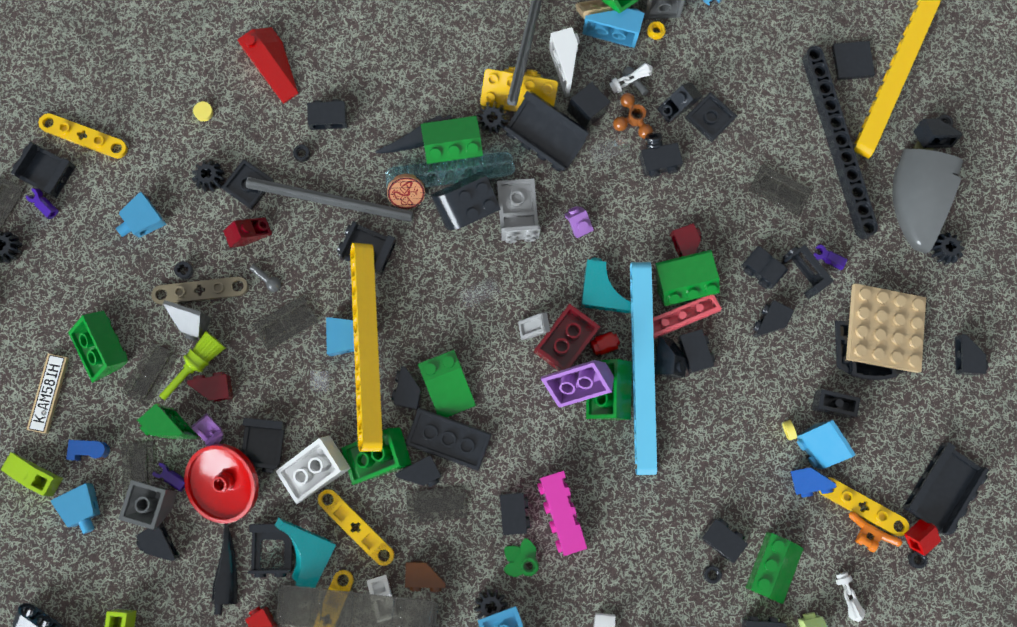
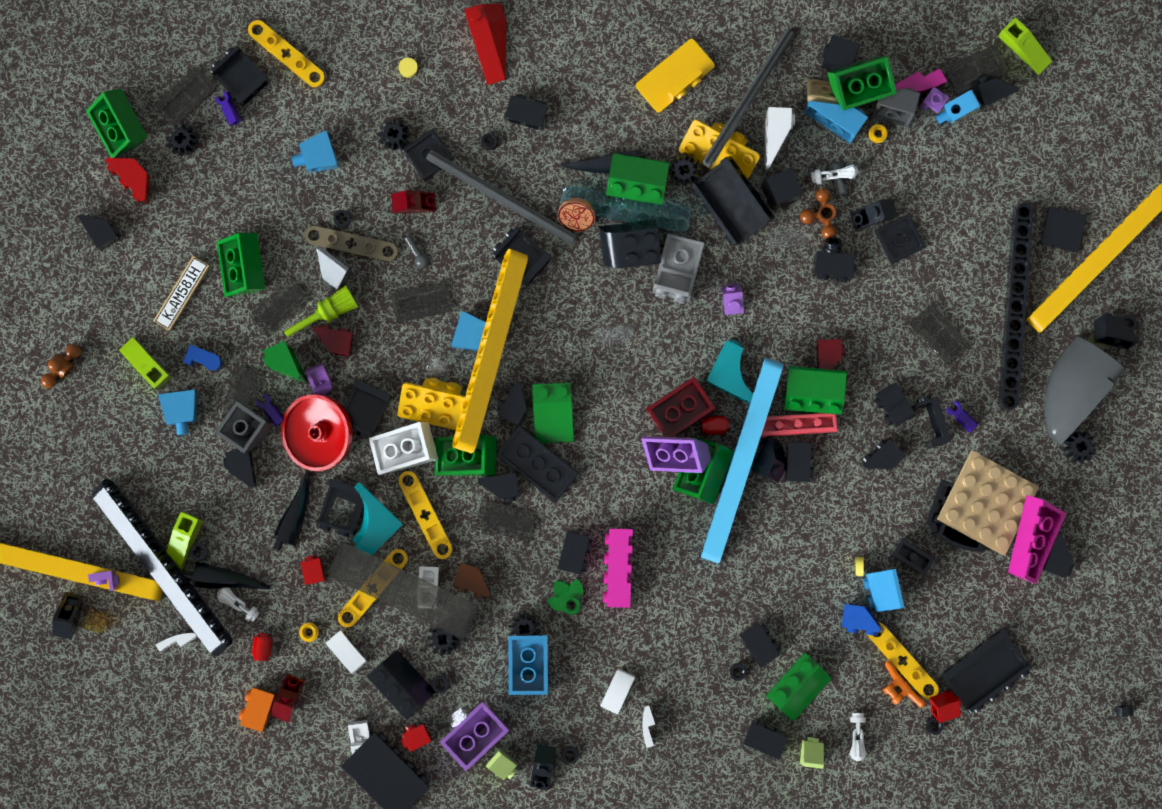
camera: 25 degrees right, 5 degrees up
(326, 415) = (432, 402): none -> yellow bracket
(454, 39) = (675, 76): none -> yellow bracket
(534, 326) = (653, 386): light grey tile -> none
(943, 346) = (1035, 538): none -> dark pink wedge

